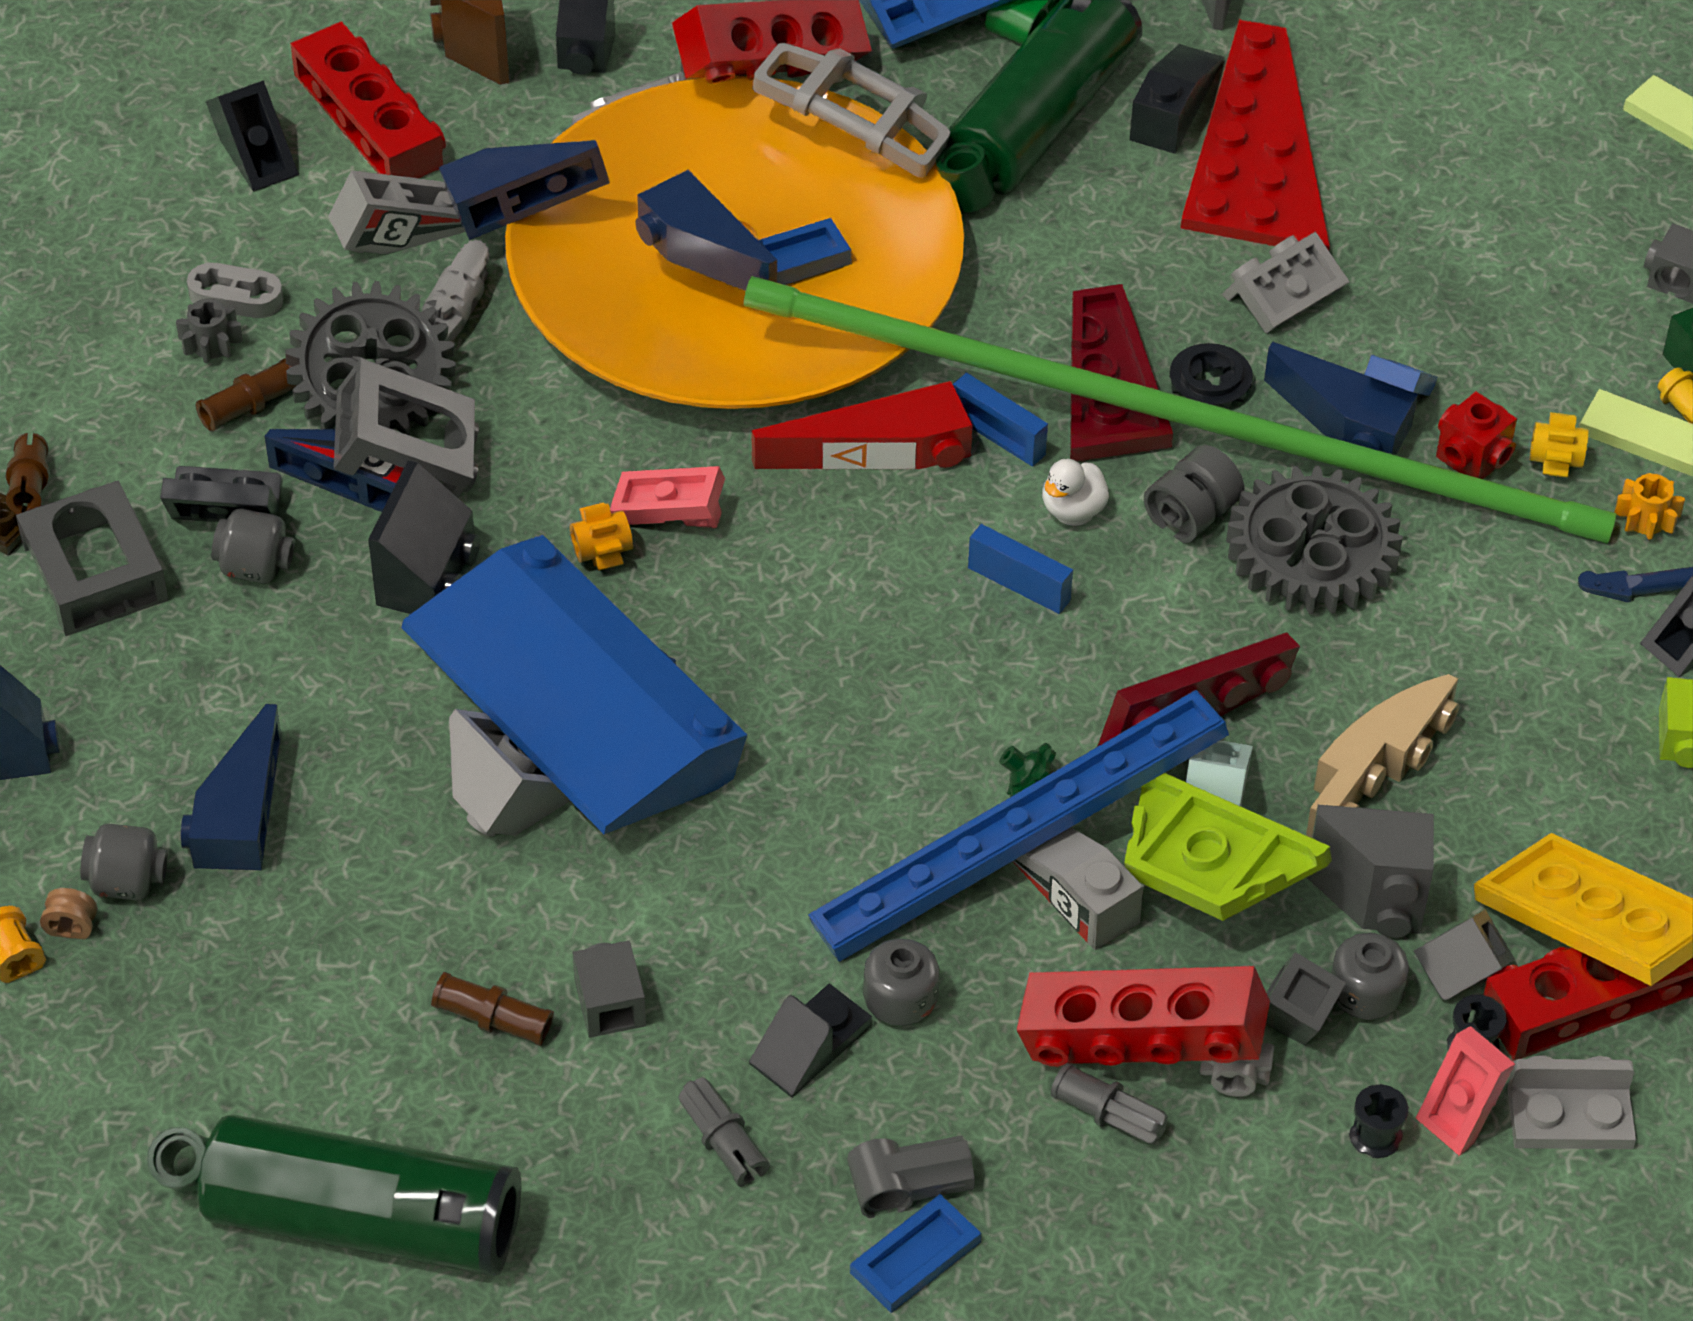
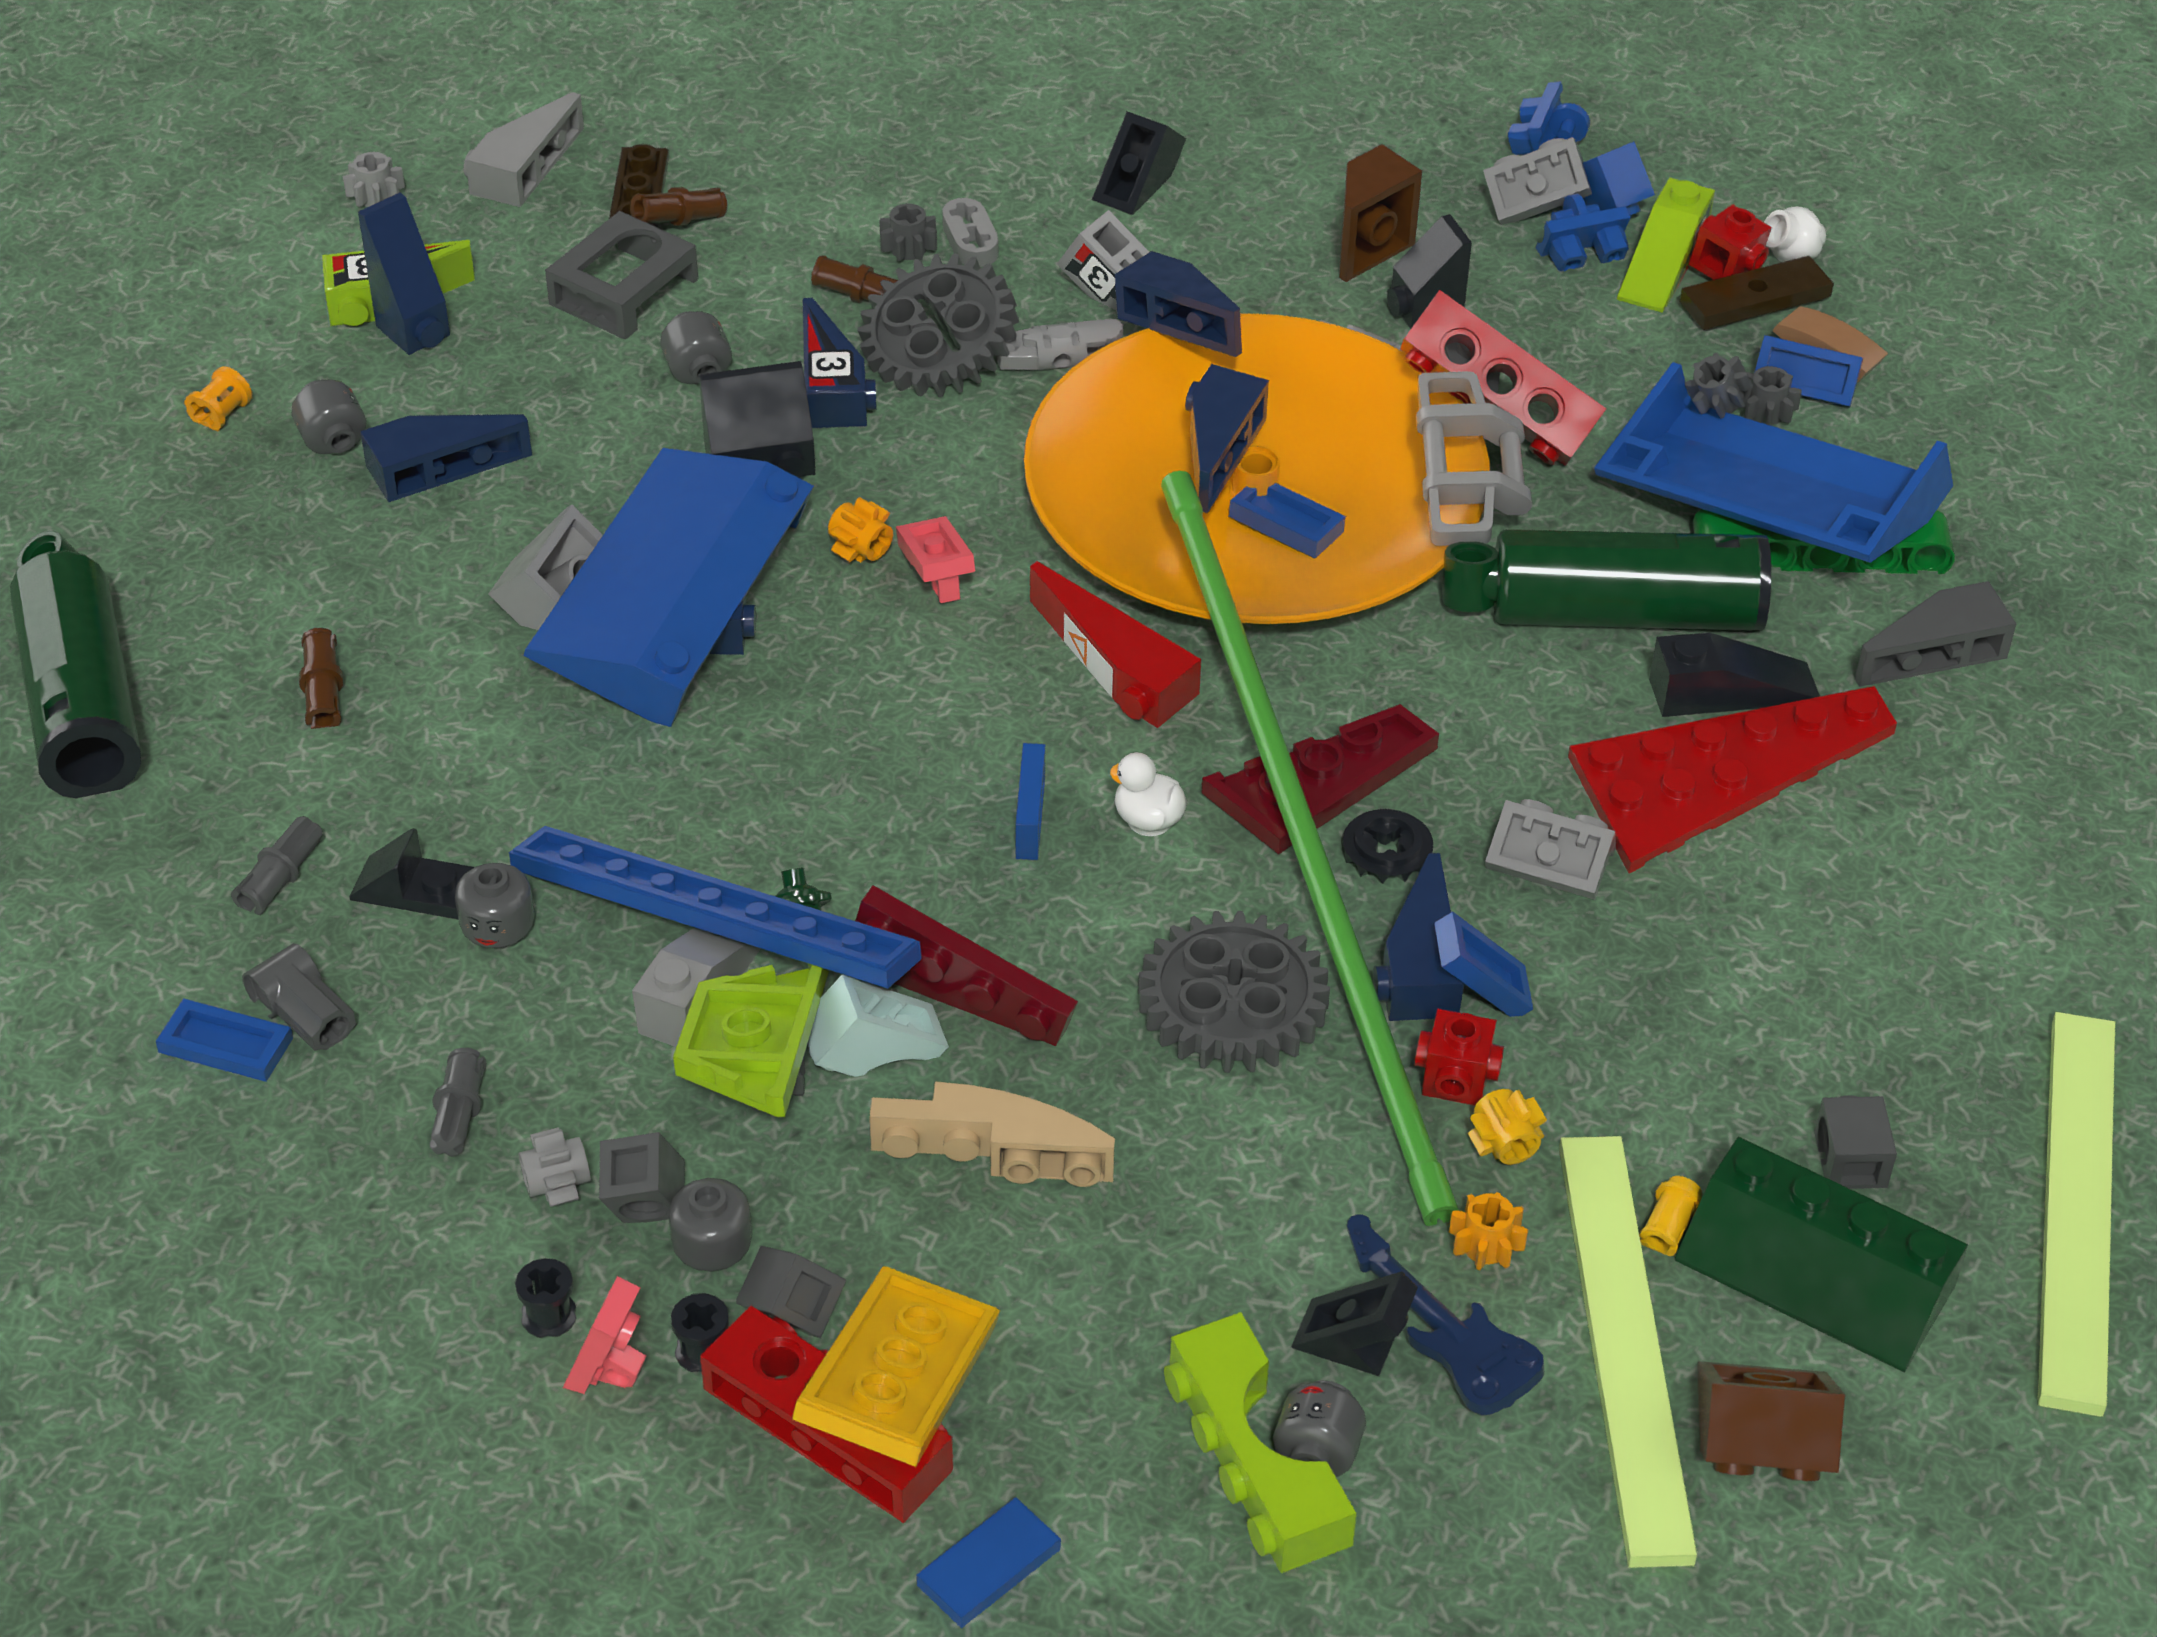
camera: 60 degrees right, 5 degrees down
(68, 913) = (265, 415): medium nougat bush -> none
(217, 492) = (739, 310): black bracket -> none
(361, 436) = (862, 417): dark grey panel -> none
(367, 103) = (1232, 206): red brick -> none
(609, 988) = (378, 733): dark grey brick -> none
(1002, 420) = (1199, 718): blue tile -> none
(1144, 1015) = (534, 1069): red brick -> none
(1194, 492) = (1212, 879): dark grey wheel -> none
(1377, 865) = (831, 1176): dark grey slope -> none
(1571, 1103) = (666, 1447): light grey bracket -> none

